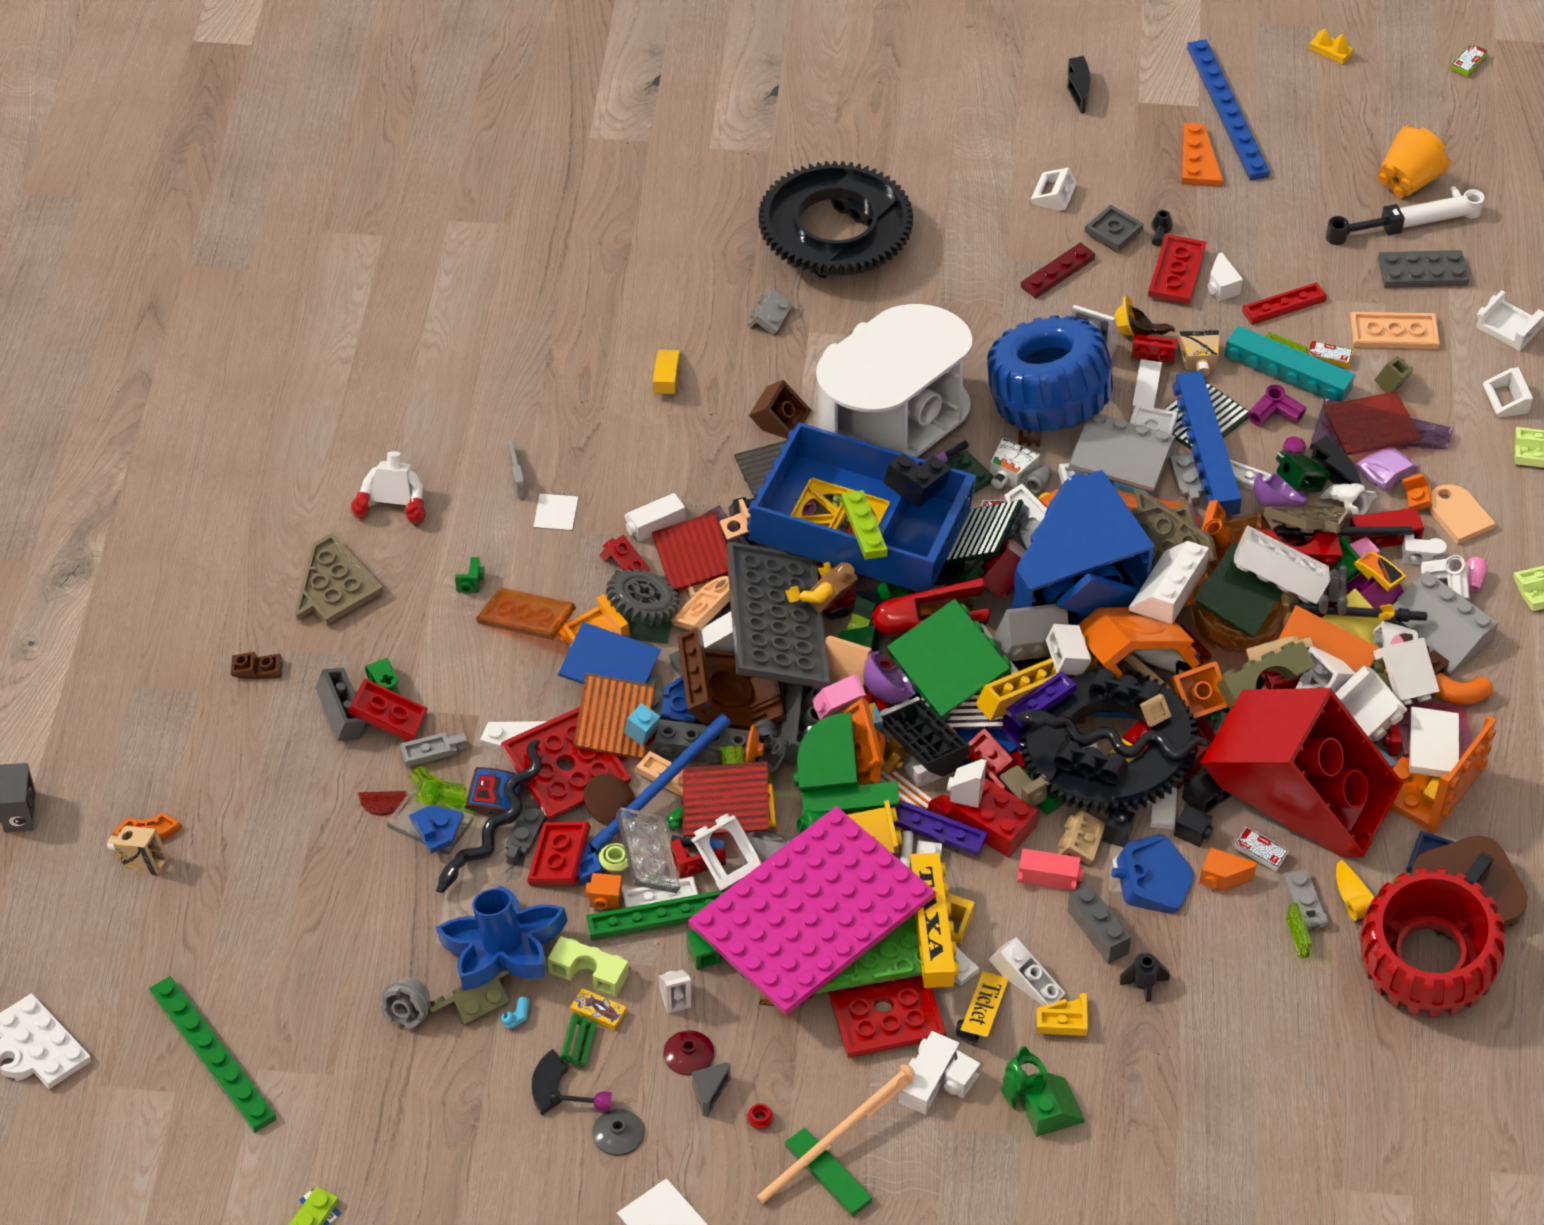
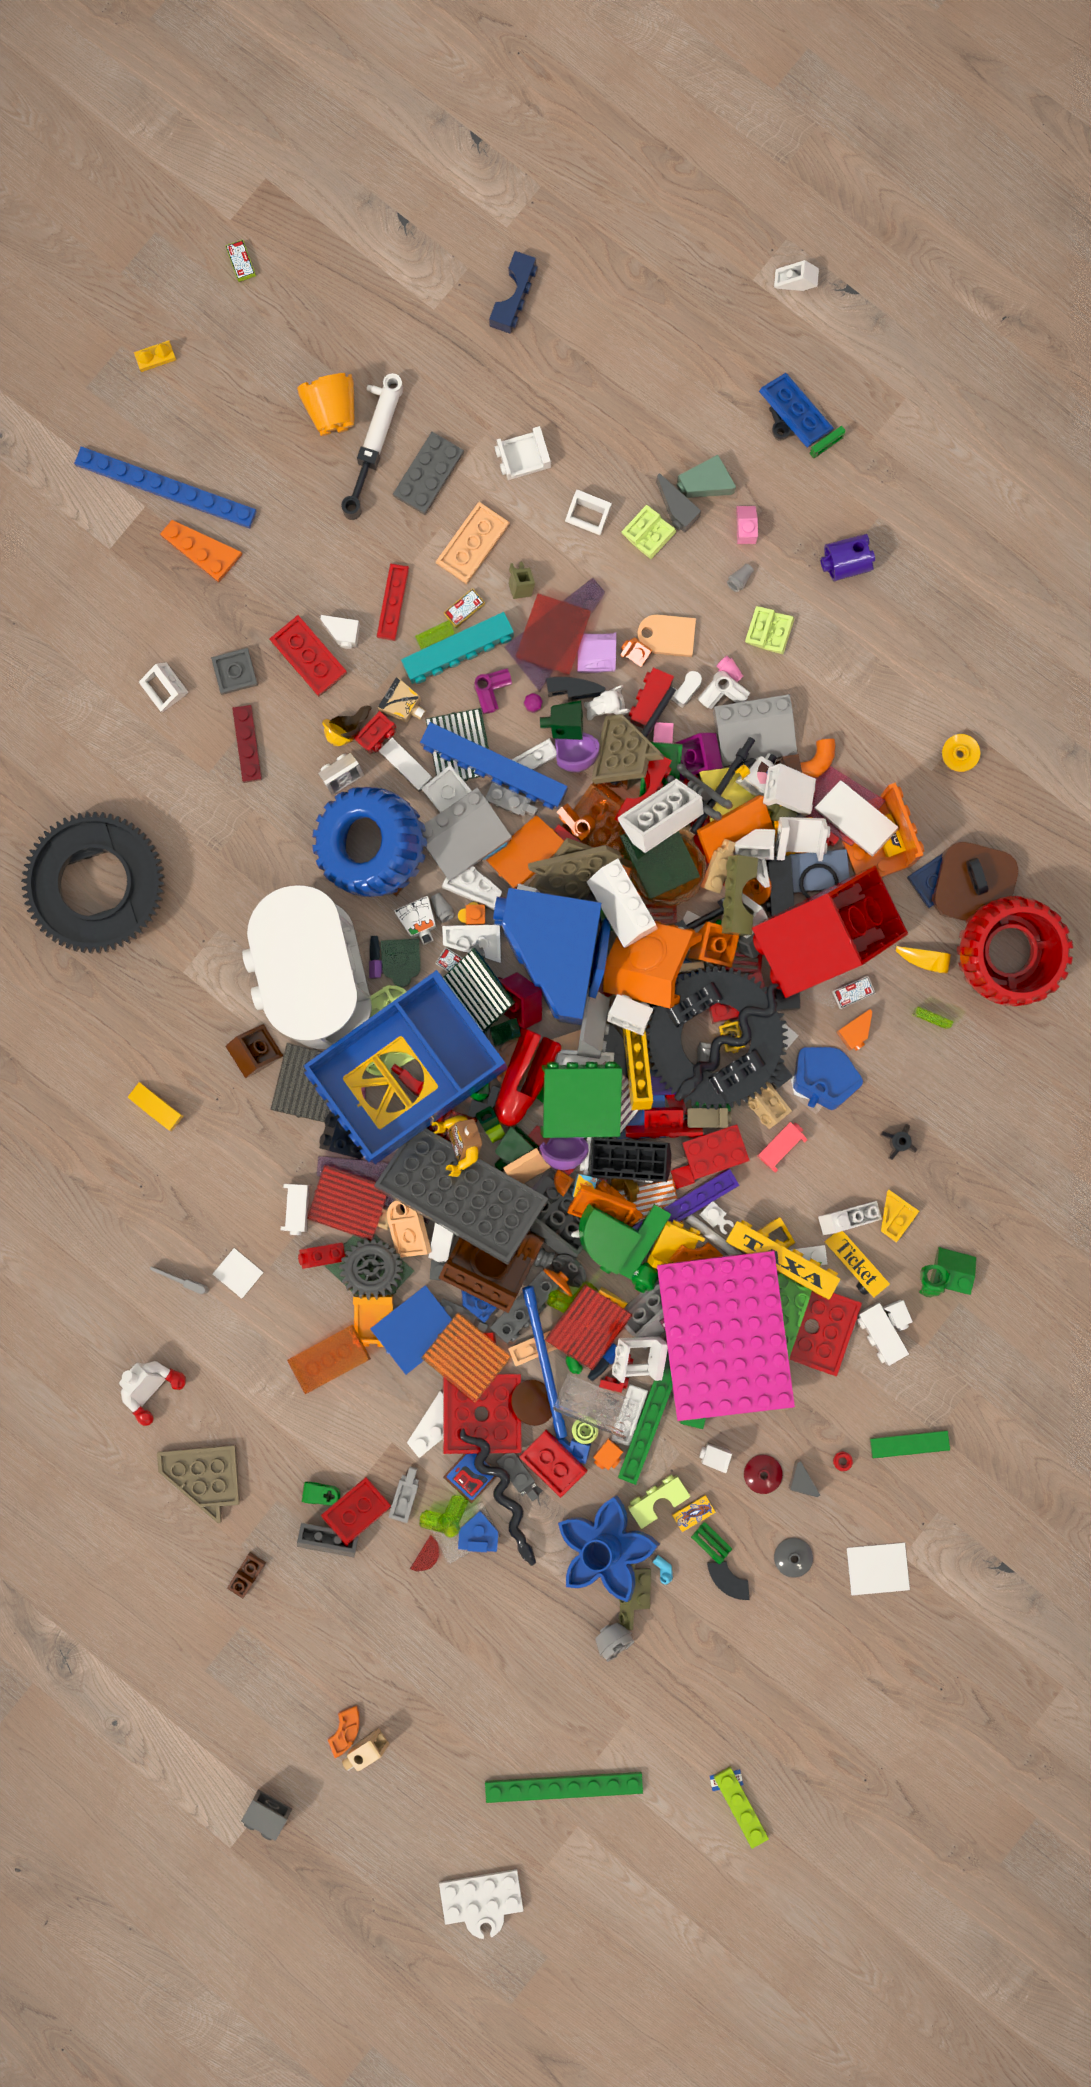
camera: 50 degrees left, 35 degrees up
(471, 582) = (265, 1371): green bracket -> none
(601, 1101) = (769, 1557): hinge -> none
(641, 724) = (491, 1346): medium azure brick -> none
(741, 518) = (350, 1151): light nougat bracket -> none
(771, 311) = (146, 990): light grey bracket -> none
(838, 696) = (561, 1198): bright pink slope -> none
(864, 524) = (440, 1089): lime plate -> none
(867, 1109) = (886, 1357): light nougat bar -> none
(915, 481) = (426, 1025): black brick -> none
(968, 784) = (697, 1165): white slope -> none
(1043, 696) = (658, 1062): dark purple plate -> none
(1079, 82) = (62, 582): black slope -> none
(1099, 923) = (844, 1144): dark grey brick -> none
(1155, 710) = (728, 998): tan tile -> none
(1161, 224) = (256, 634): black bar -> none
(1193, 826) = (809, 1024): black brick -> none
(1302, 892) = (909, 993): light grey plate -> none
(1381, 569) = (697, 741): slope -> none

